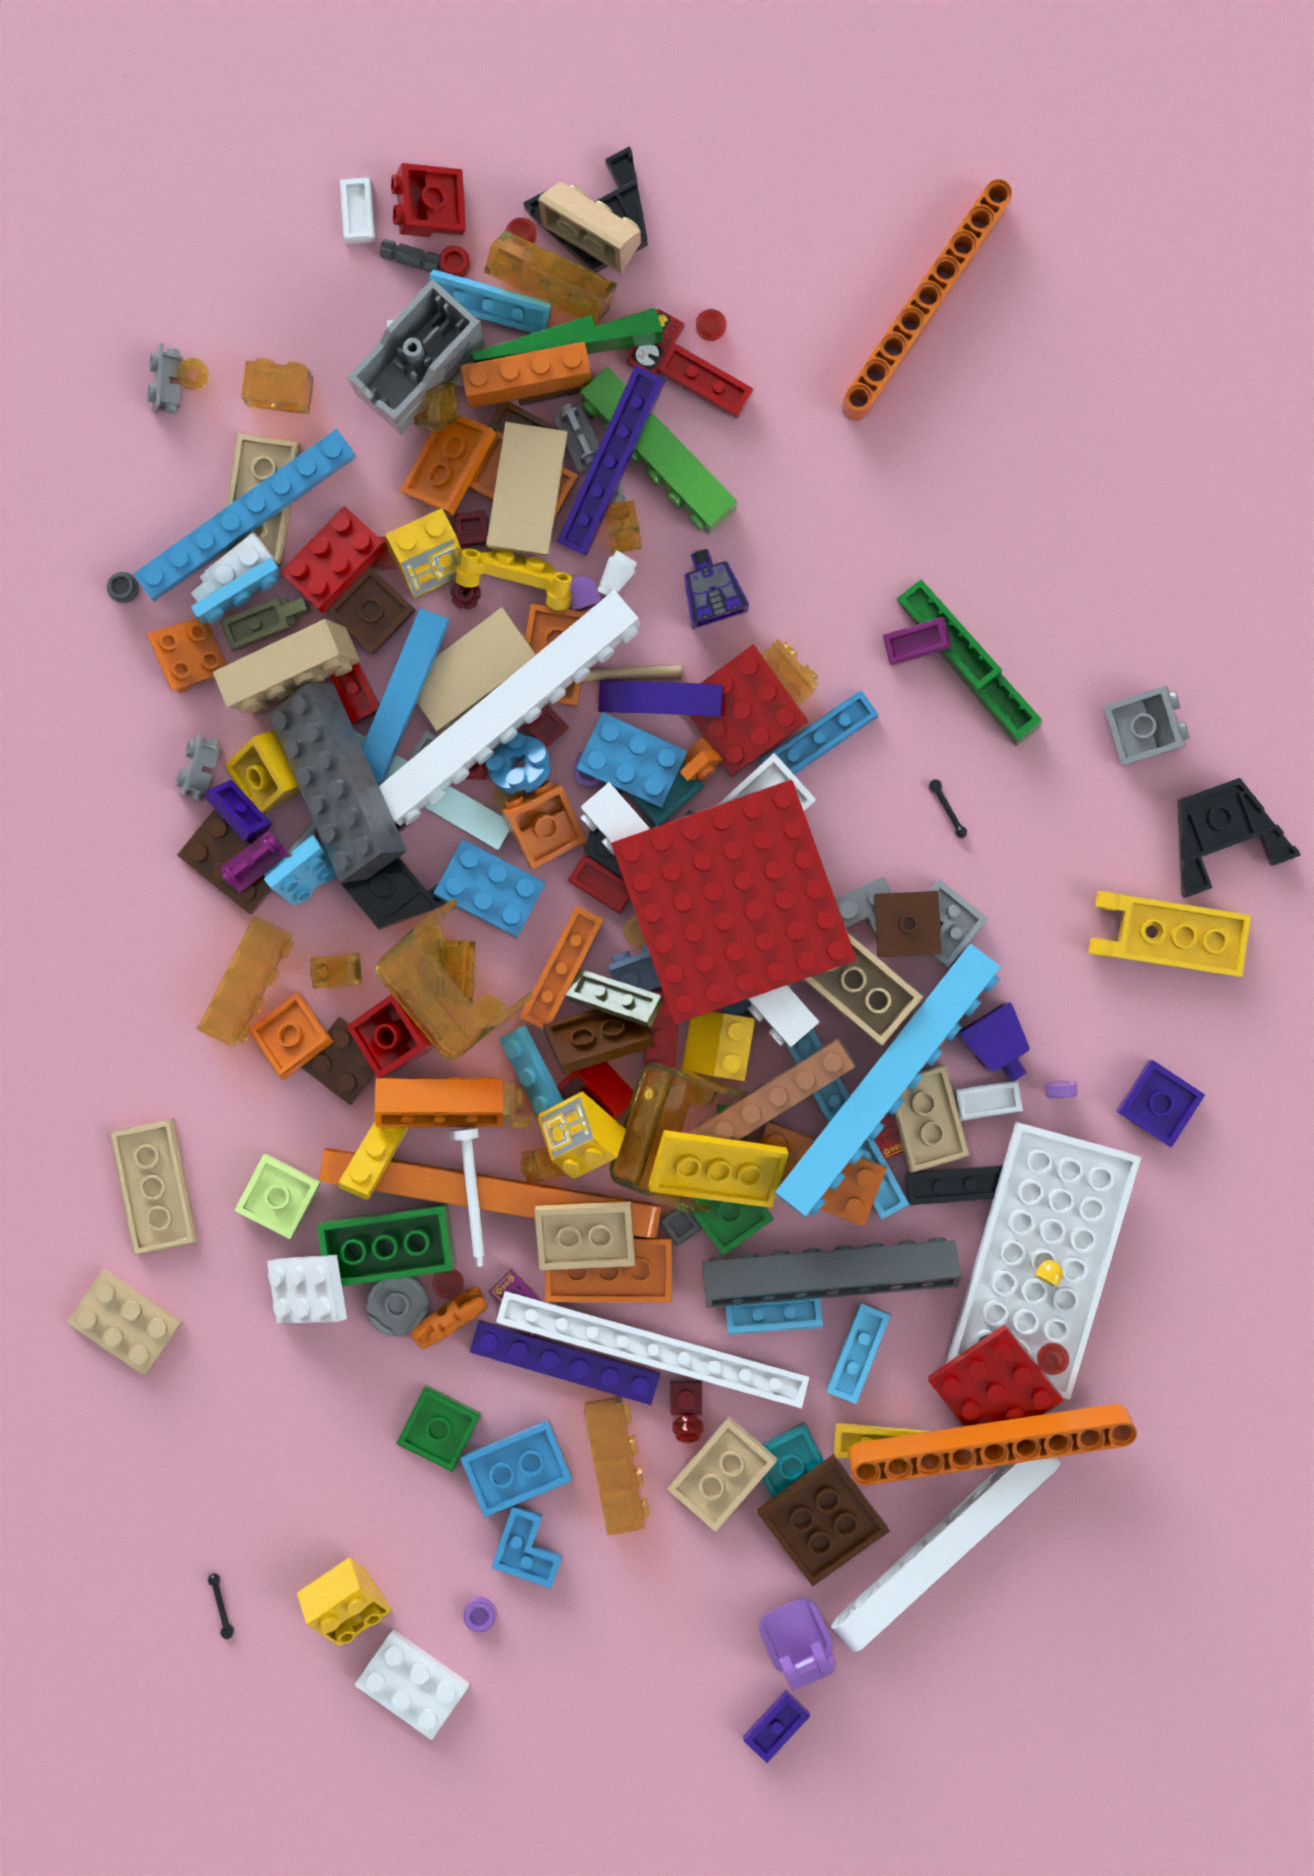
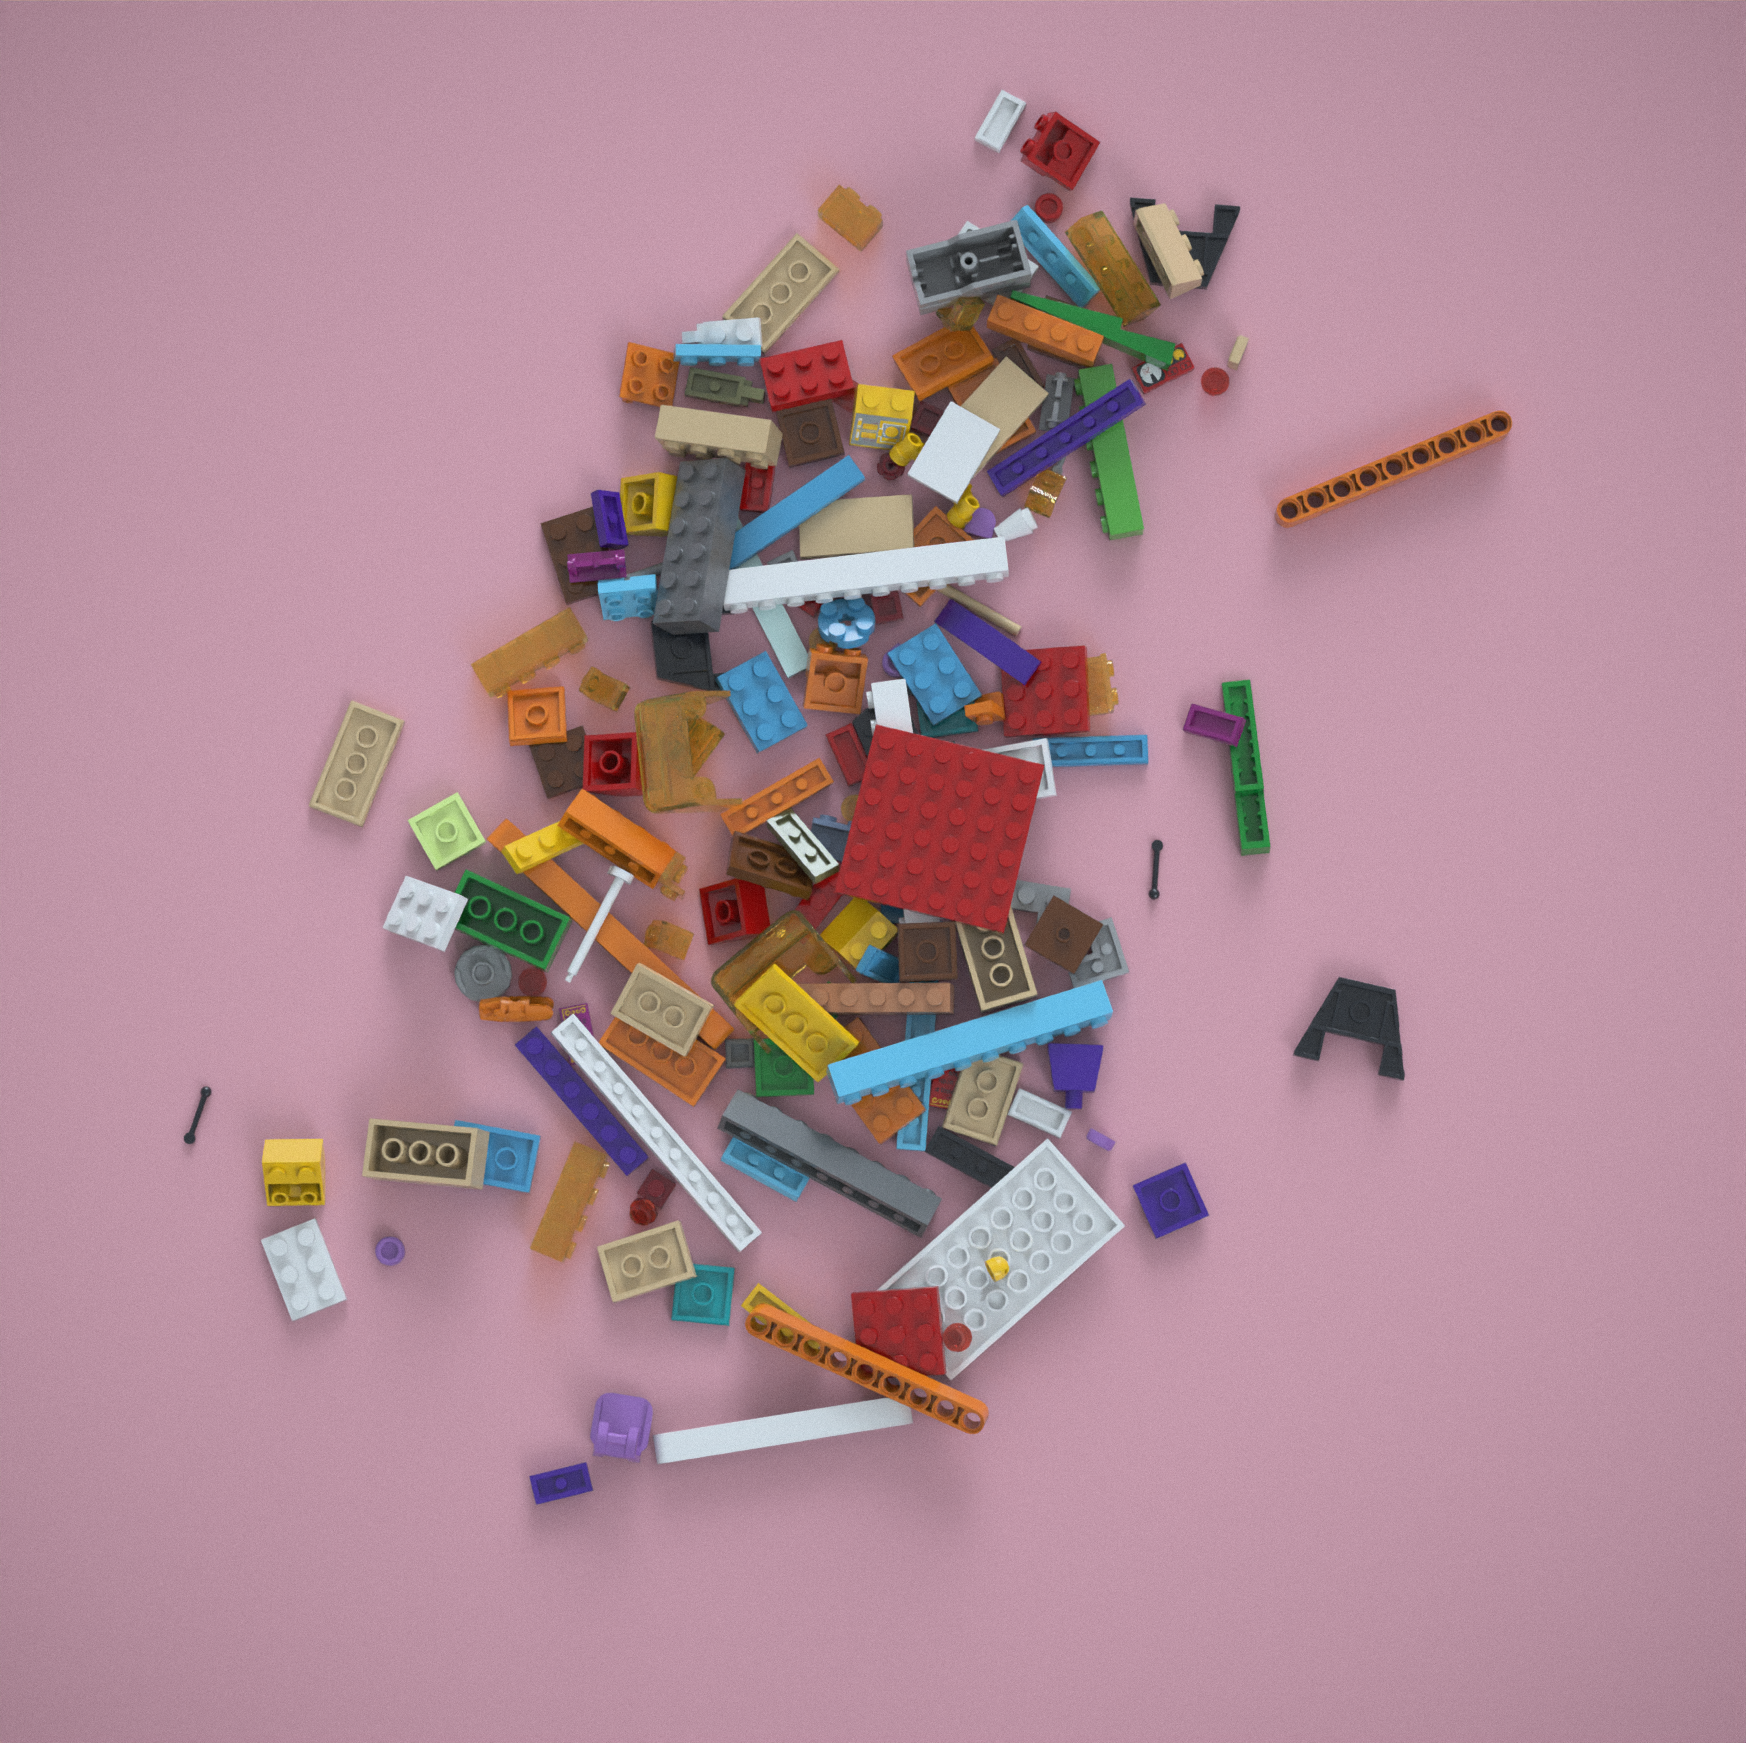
camera: 35 degrees right, 5 degrees down
(123, 587) = (632, 294): dark grey plate -> none
(124, 1322) = (267, 852): tan plate -> none
(161, 391) = (773, 147): light grey hinge -> none
(192, 364) = (792, 157): clear yellow plate -> none
(199, 755) = (607, 458): light grey hinge -> none
(245, 515) = (762, 299): dark azure plate -> none
(409, 255) = (1017, 181): dark grey axle -> none
(438, 1428) = (452, 1088): green tile -> none
(454, 1513) = (425, 1154): none -> tan brick
(515, 542) = (953, 452): none -> white tile
(518, 1554) = (450, 1223): dark azure plate -> none
(523, 228) = (1117, 217): clear red plate -> none
(531, 1070) = (702, 864): medium azure plate -> none
(580, 1135) = (708, 930): yellow slope -> none
(705, 380) = (1182, 421): red plate -> none
(712, 591) = (1080, 585): torso -> none
(714, 283) = (1237, 352): none -> tan tile
(761, 1062) = (879, 965): none -> dark azure tile
(797, 1024) = (927, 951): none -> reddish brown tile
(823, 1520) = (700, 1347): reddish brown plate -> none
(858, 1352) = (811, 1239): medium azure plate -> none
(1146, 725) = (1350, 903): light grey plate -> none
(1184, 938) = (1274, 1086): yellow hinge -> none

